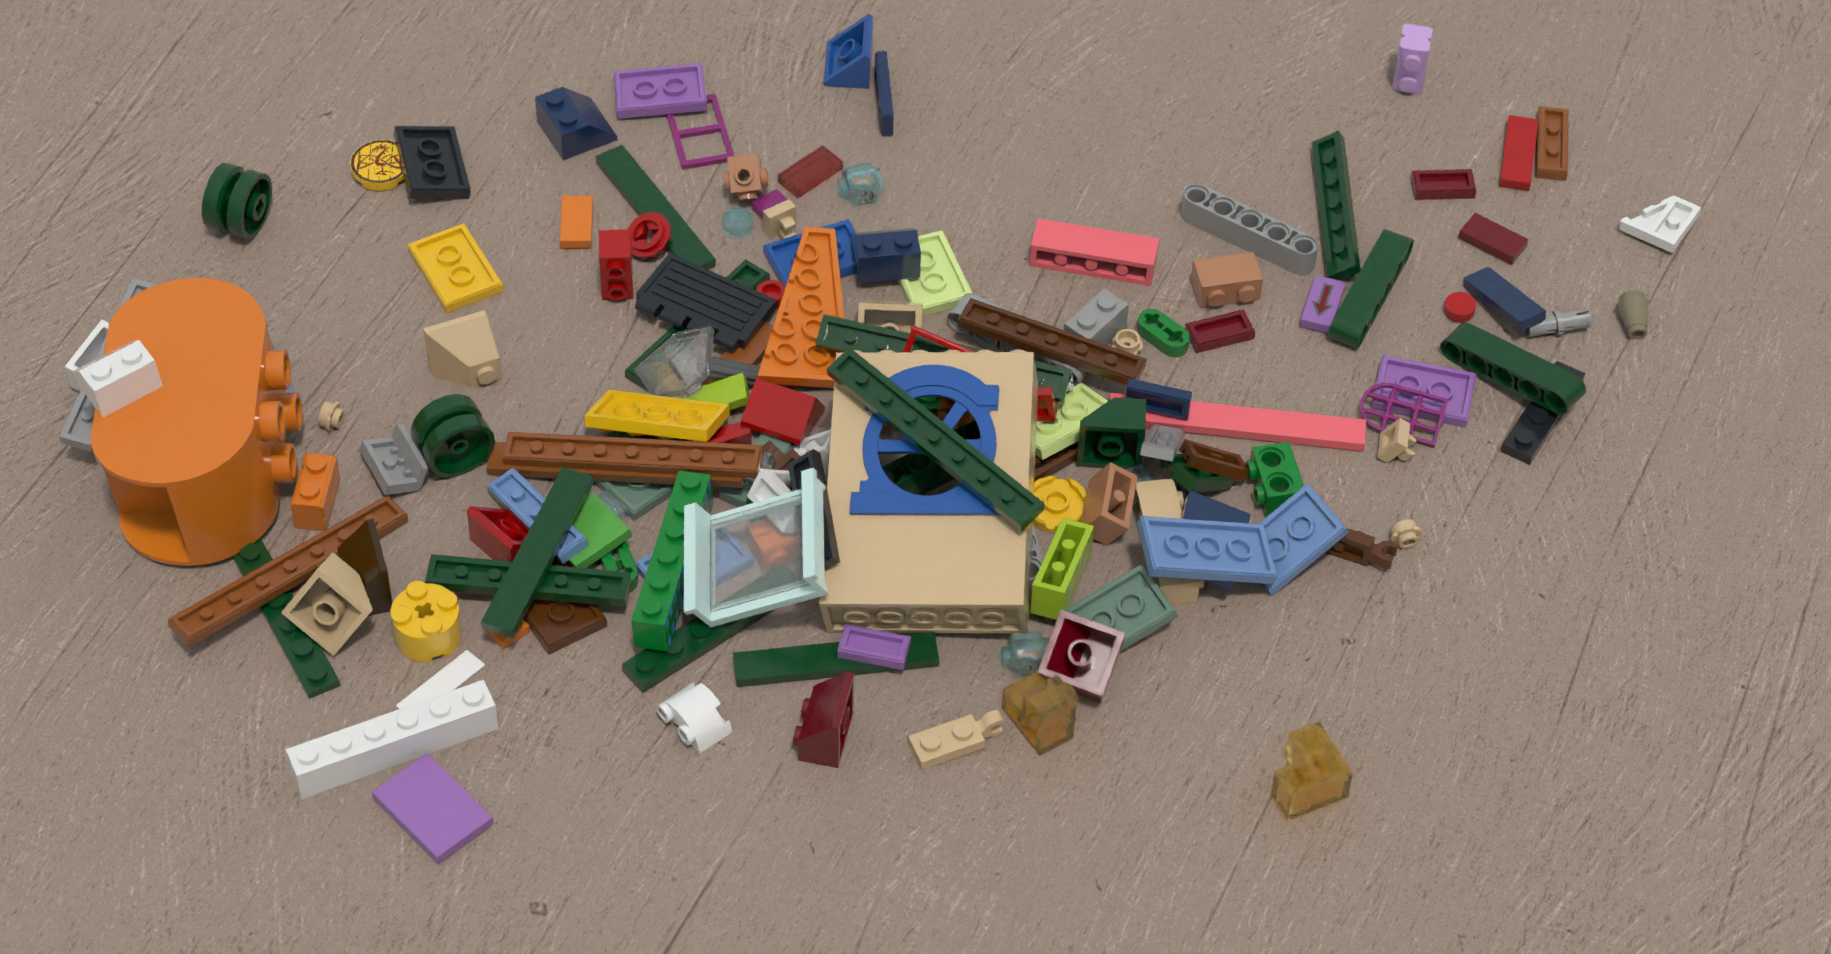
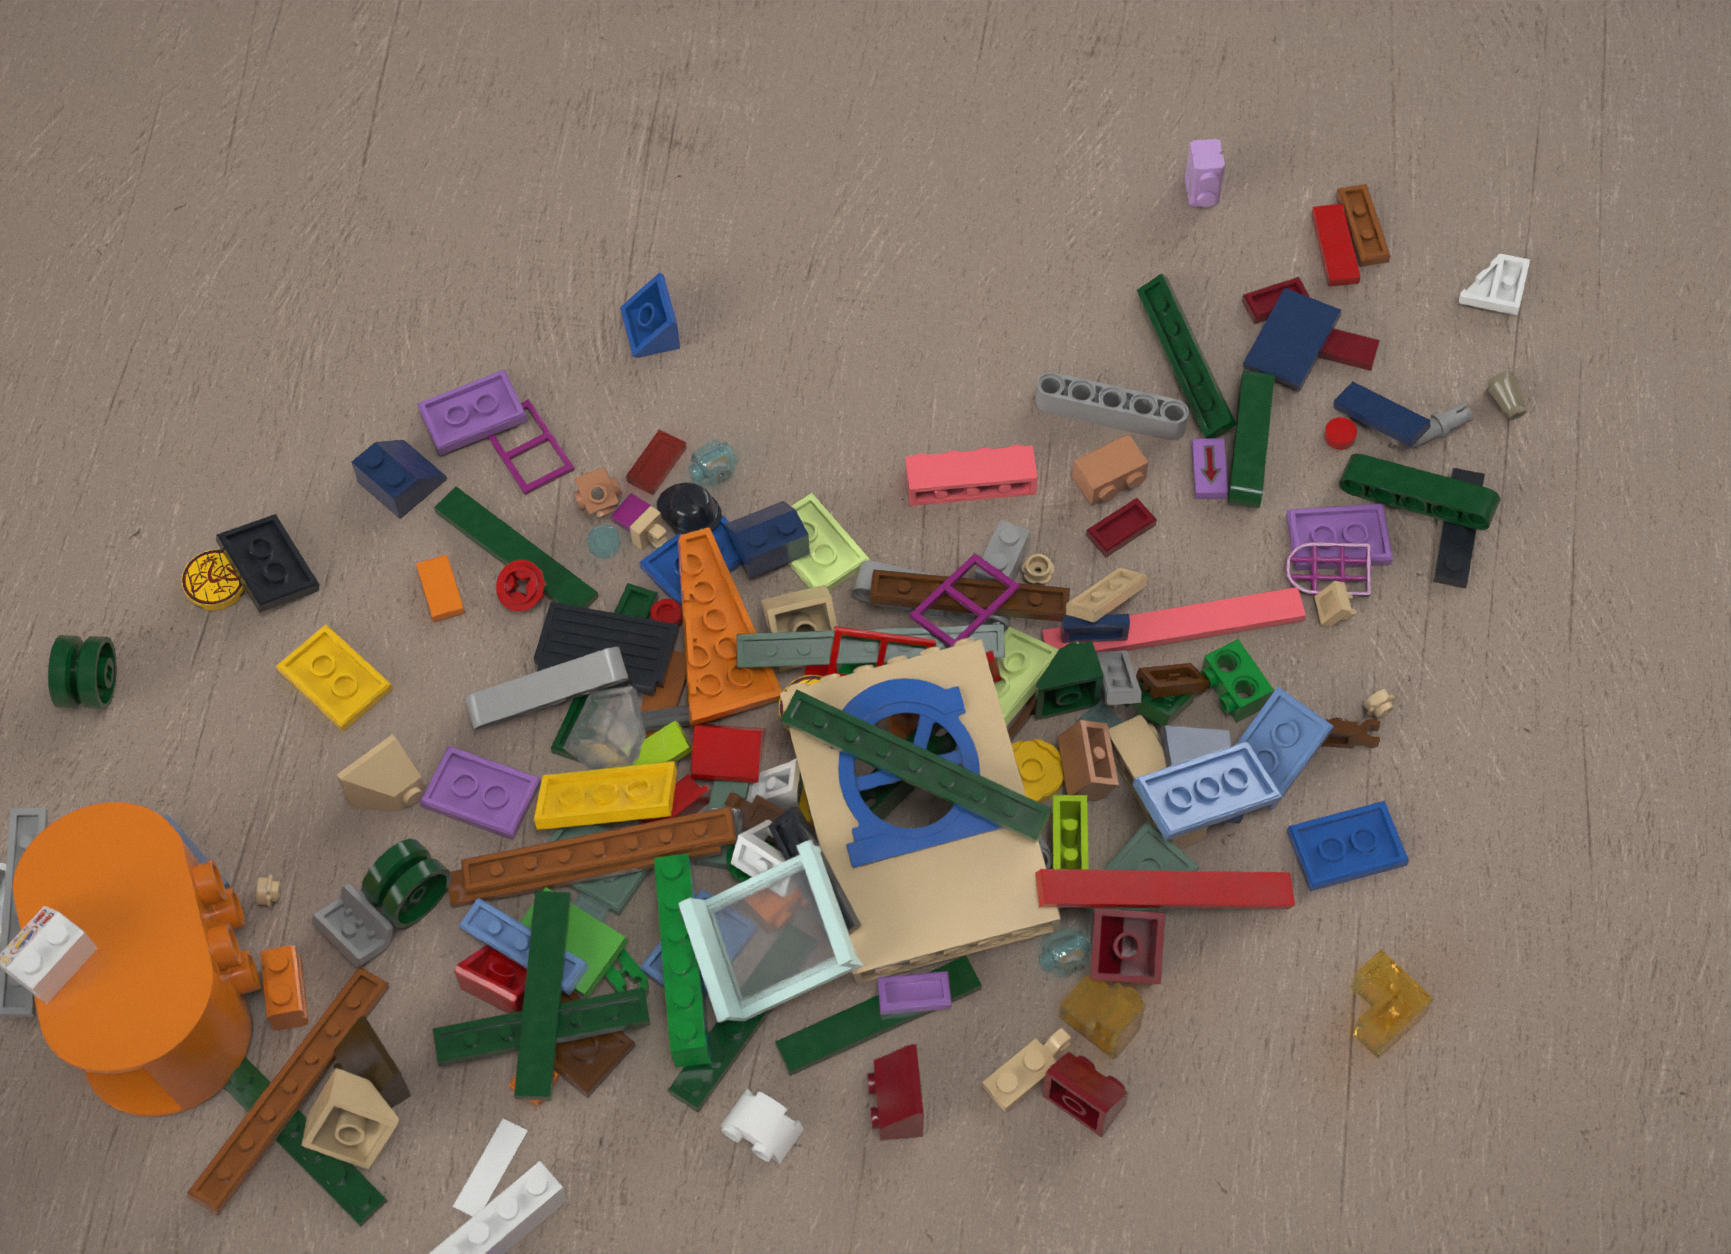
camera: 15 degrees left, 10 degrees up
(426, 621) = (471, 1110): yellow brick -> none
(547, 390) = (480, 792): none -> medium lavender tile
(616, 264) = (502, 633): red brick -> none
(636, 317) = (546, 688): none -> light grey beam
(826, 210) = (689, 508): none -> black piece
(884, 93) = (700, 353): dark blue tile -> none
(997, 766) = (1084, 1092): none -> dark red slope
(1032, 326) = (946, 587): none -> magenta window
(1135, 616) = (1164, 889): none -> red tile
(1163, 332) = (1068, 545): green beam -> none
(1179, 374) = (1106, 594): none -> tan tile
(1328, 642) = (1347, 846): none -> blue tile
(1444, 216) = (1292, 338): none -> dark blue tile

